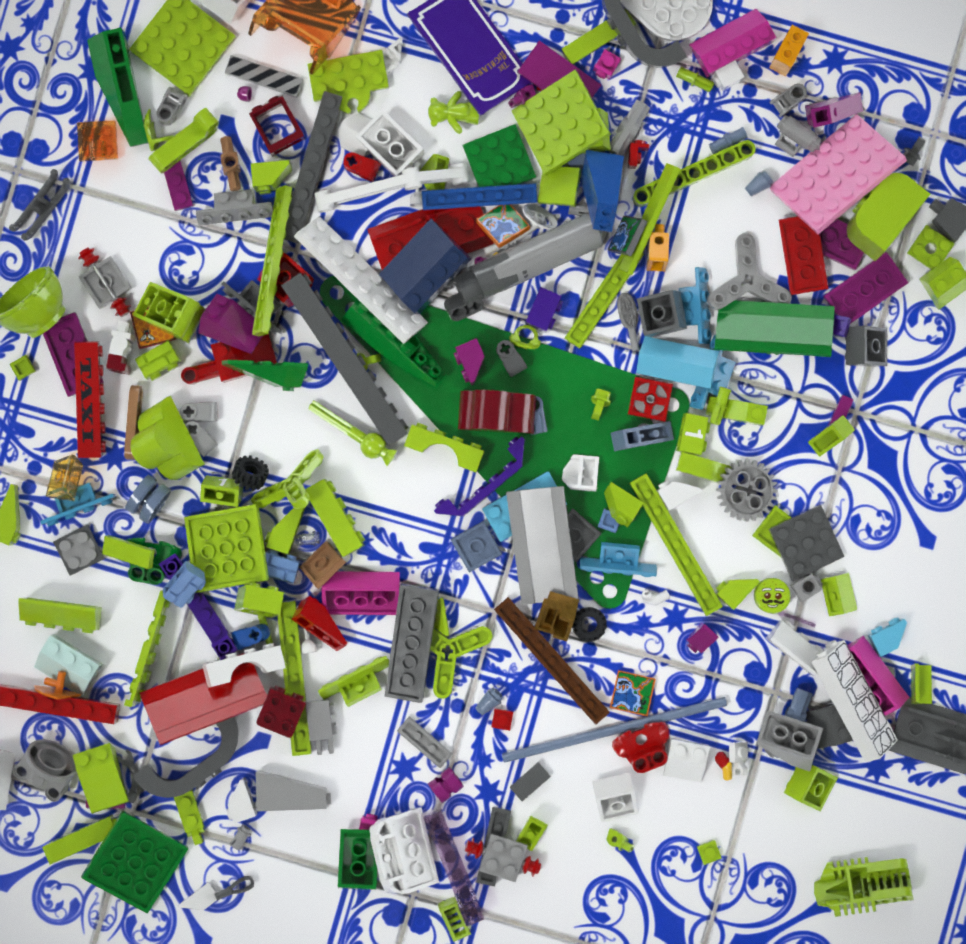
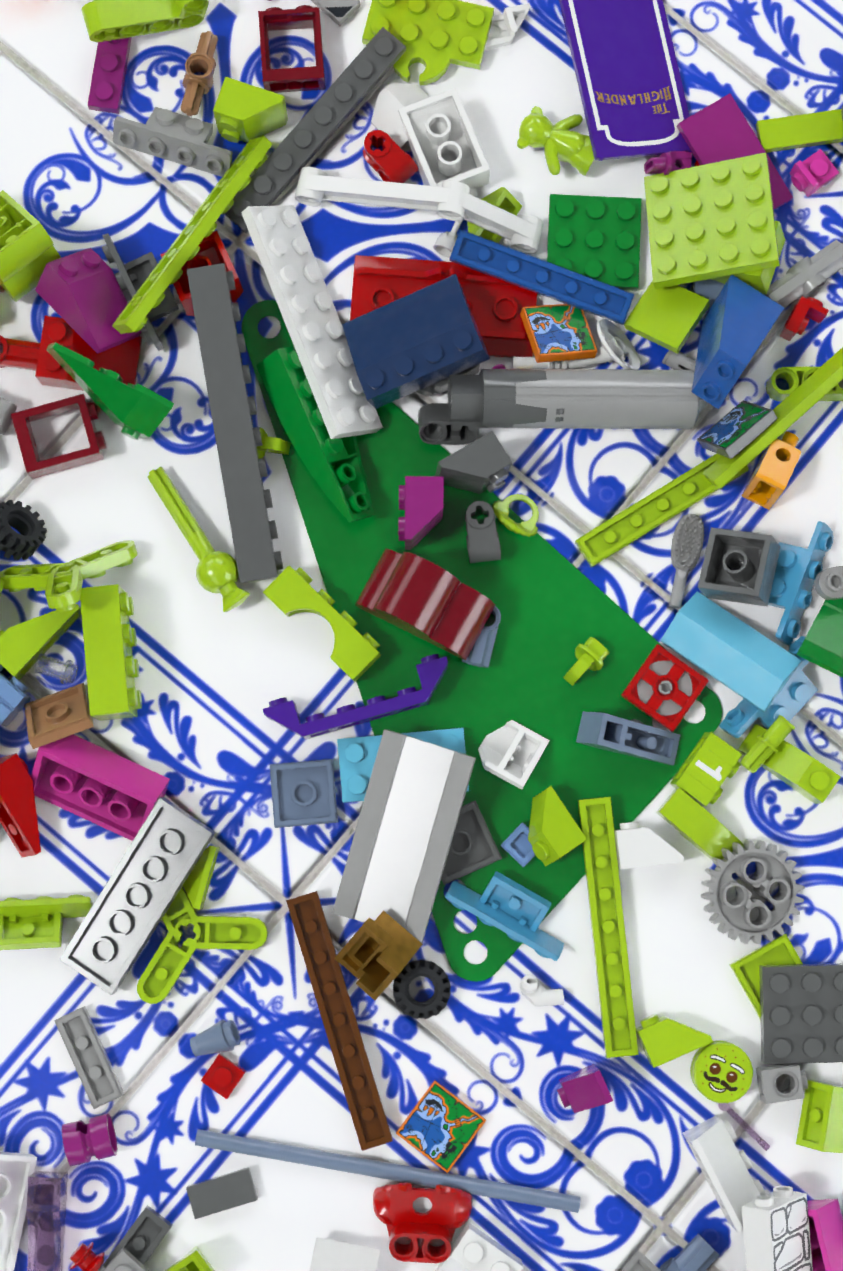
camera: 20 degrees right, 5 degrees down
(271, 402) = (34, 466): none -> dark red window
(491, 322) = (477, 466): none -> dark grey slope
(544, 309) = (563, 485): dark purple brick -> none

